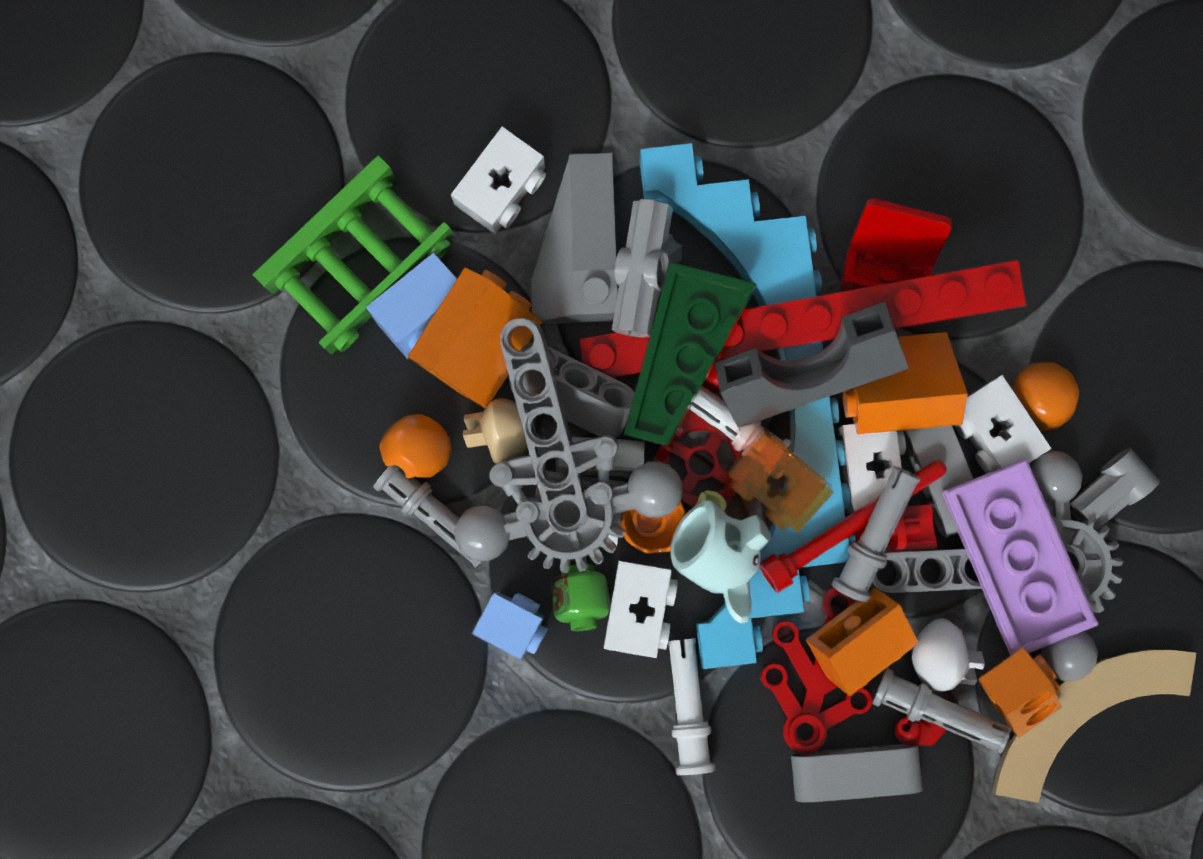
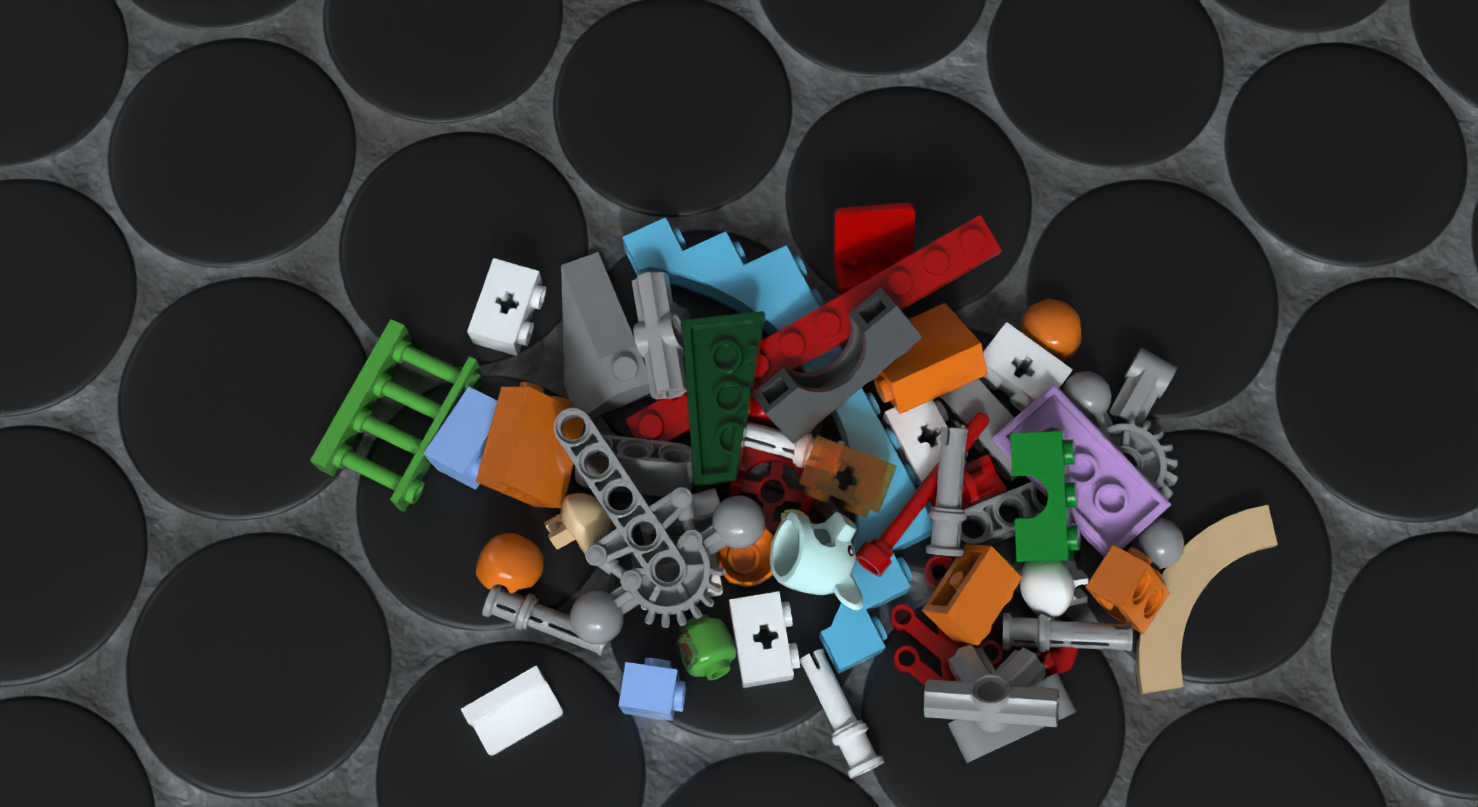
camera: 20 degrees left, 10 degrees down
(373, 592) = (513, 711): none -> white panel
(838, 735) = (991, 695): none -> light grey piece
(988, 537) = (1048, 459): none -> green arch

